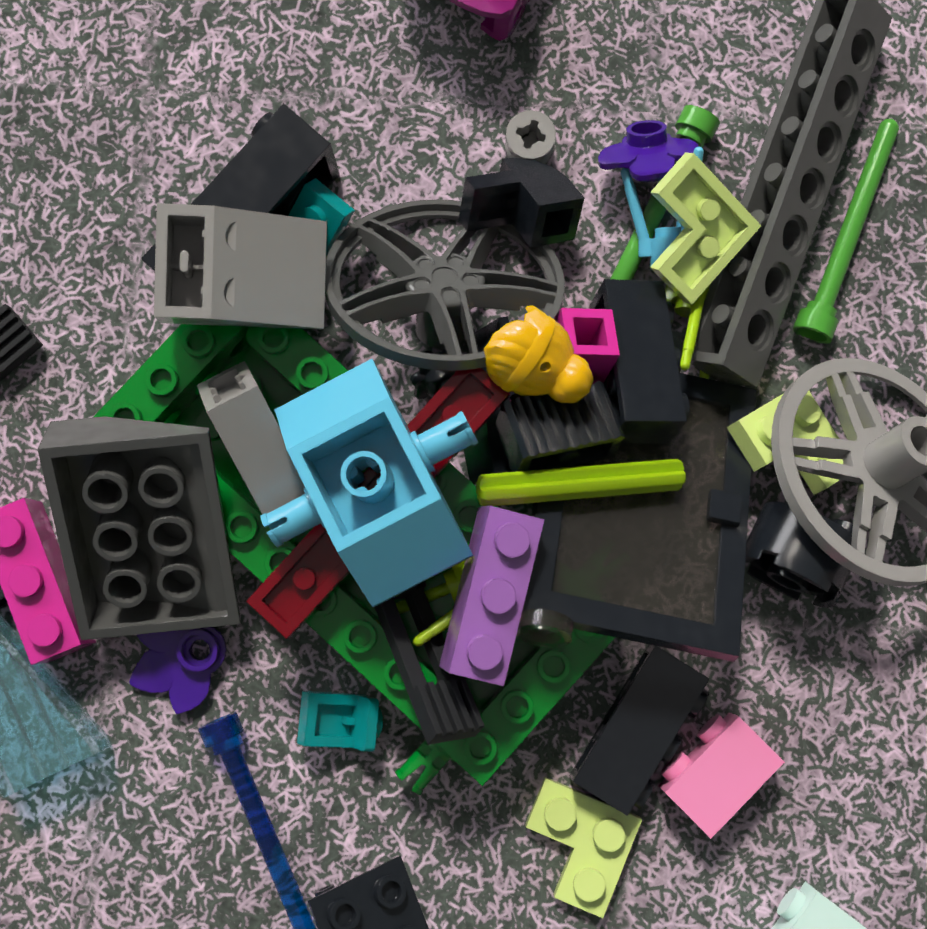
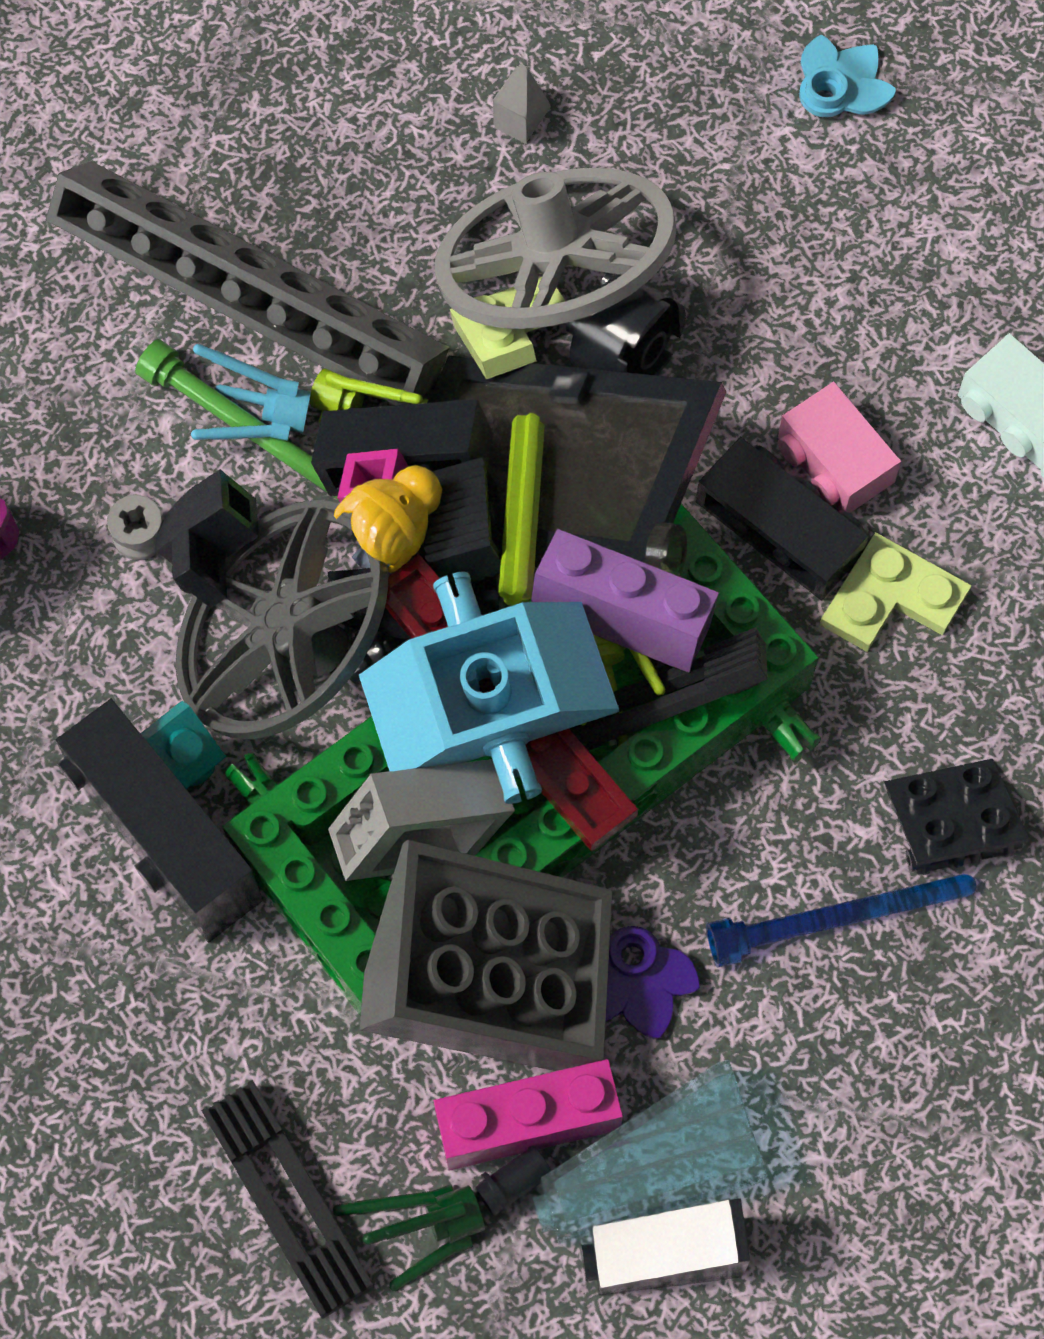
camera: 80 degrees left, 15 degrees down
(238, 268) = (232, 803): light grey slope -> none
(339, 720) = (731, 810): teal bracket -> none
(646, 151) = (179, 409): dark purple plate -> none
(713, 227) = (282, 350): yellowish green plate -> none
(818, 318) = (387, 284): bright green piece -> none

